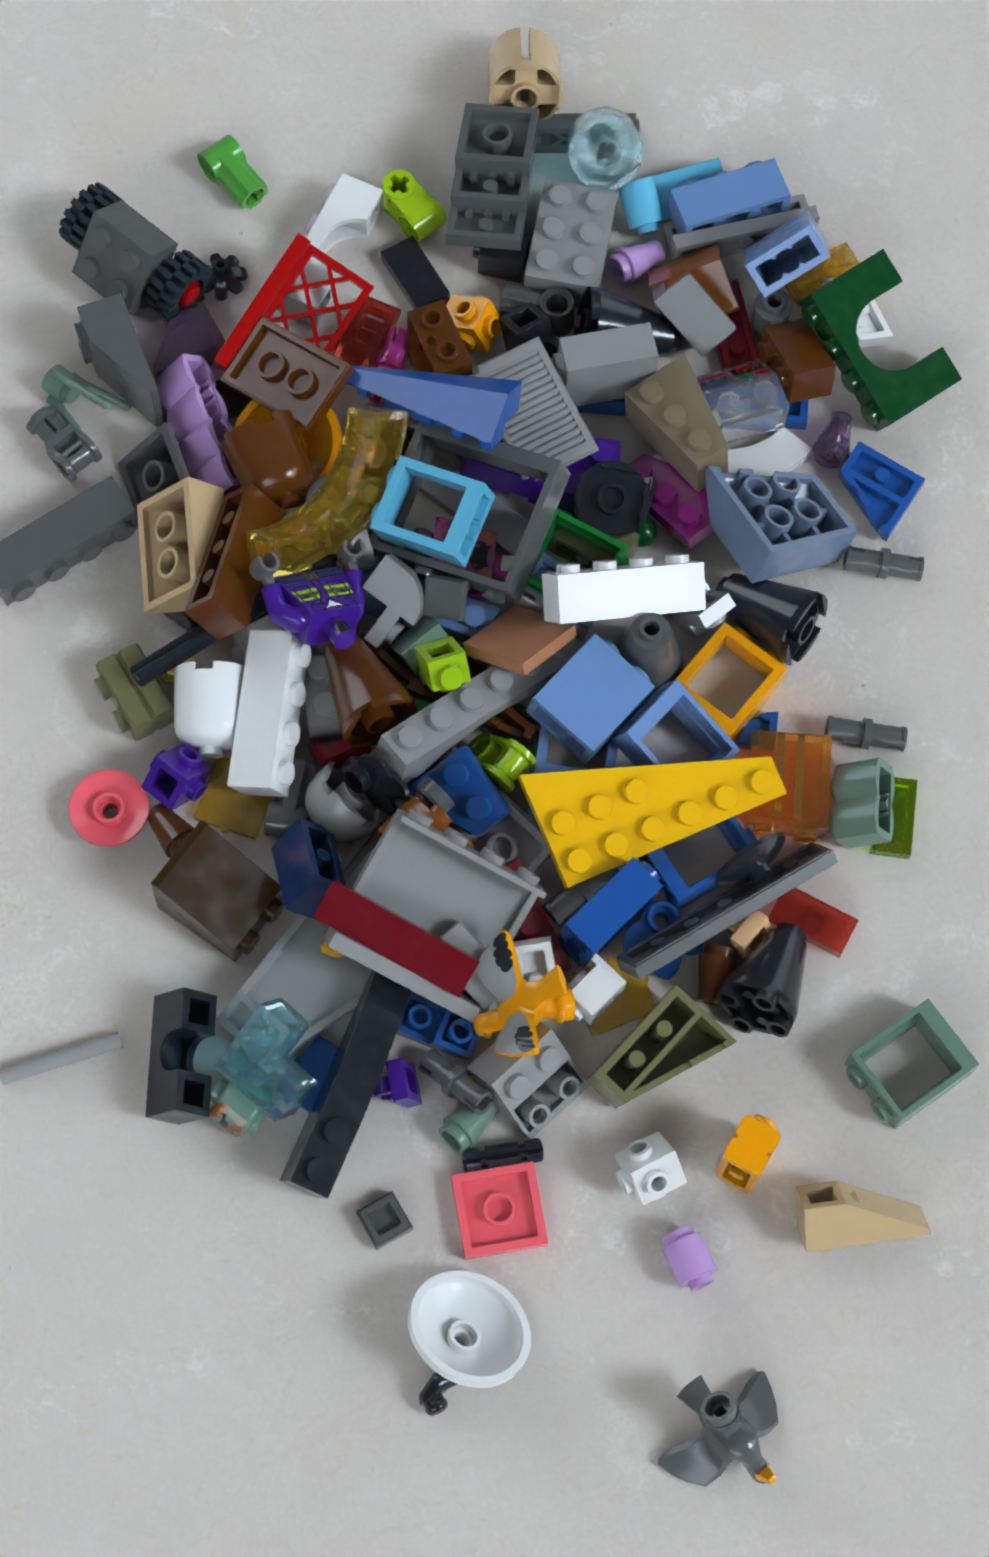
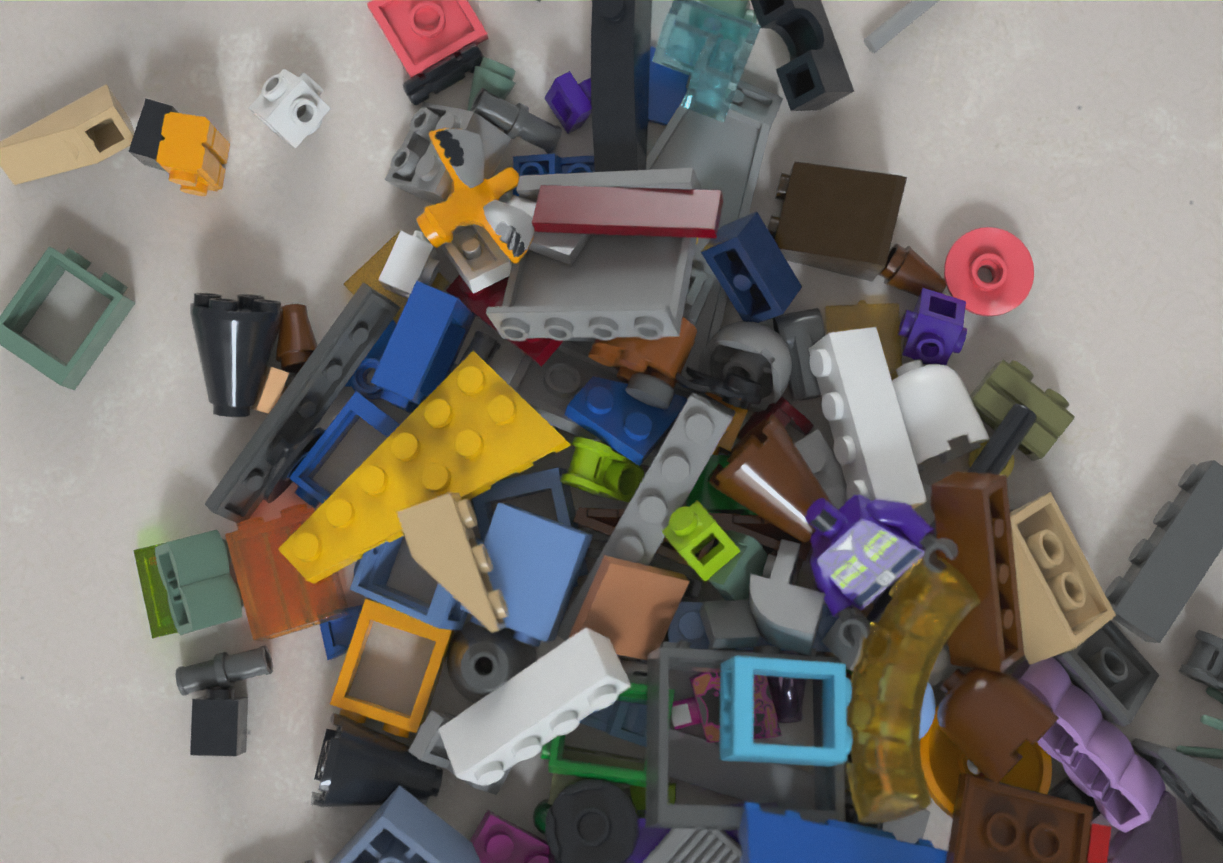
camera: 165 degrees right, 15 degrees up
(649, 723) = (447, 549): none -> tan slope
(659, 1047) = (324, 228): olive wedge -> none
(689, 1258) = (222, 39): lavender brick -> none
(778, 1184) = (148, 132): none -> black piece
(821, 922) = (208, 435): clear red plate -> none
(883, 692) = (219, 724): none -> black brick

